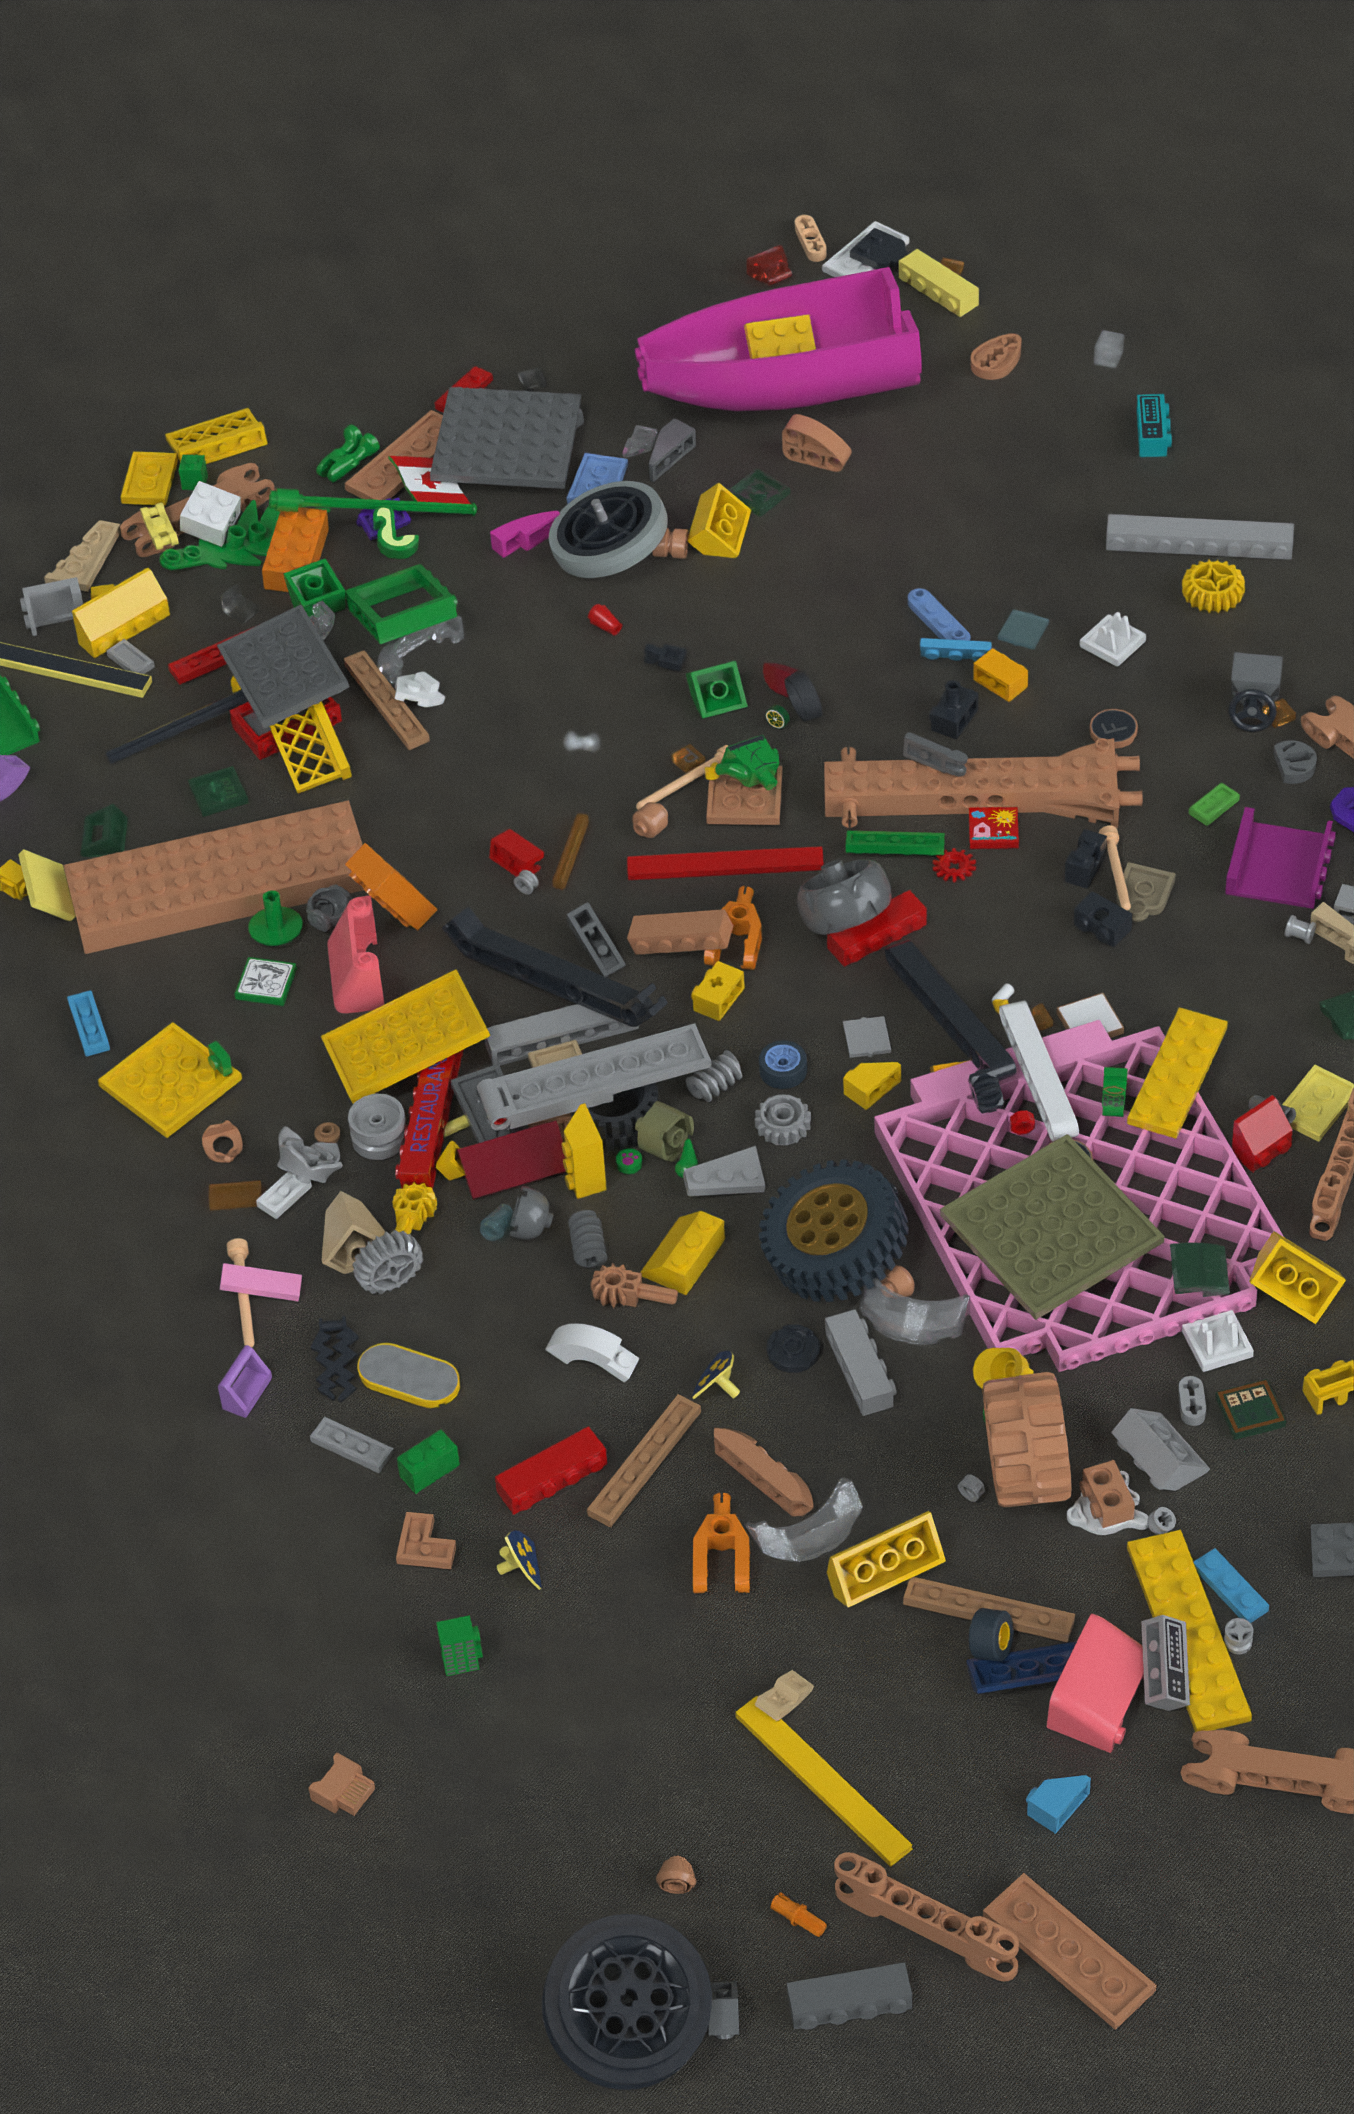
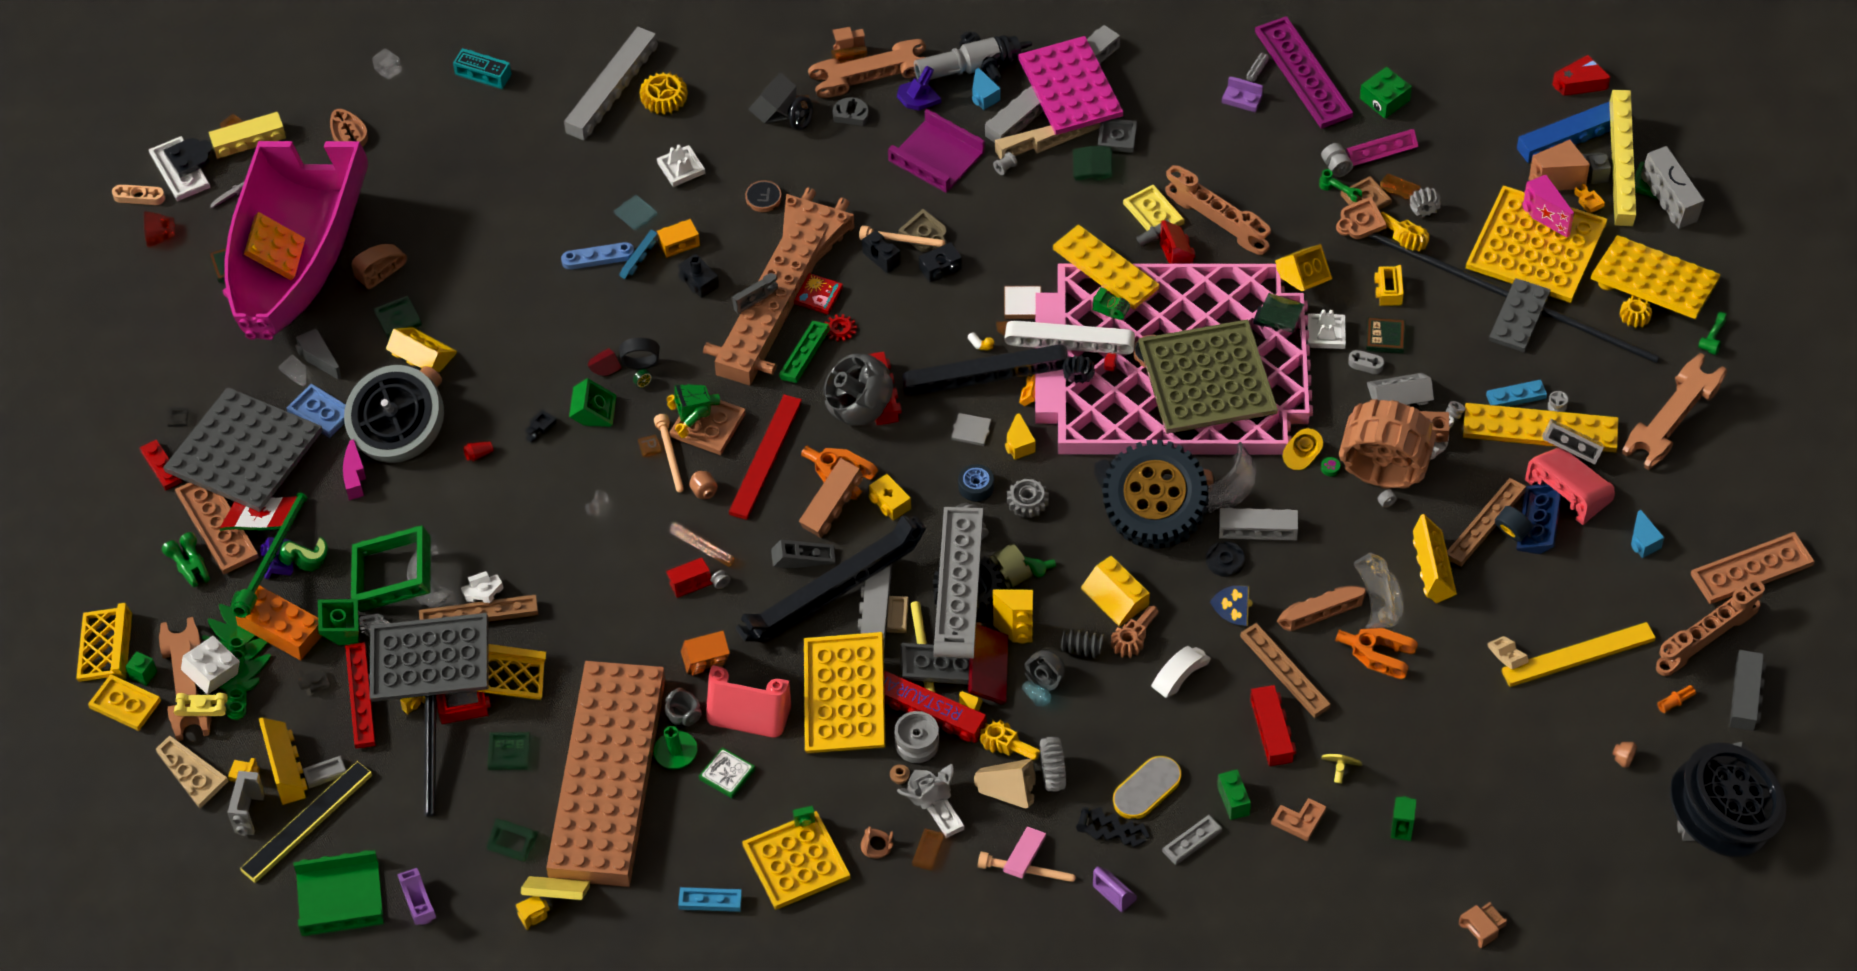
camera: 70 degrees left, 5 degrees up
(726, 1175) = (1060, 545): light grey wing -> none
(1214, 804) = (867, 167): bright green plate -> none

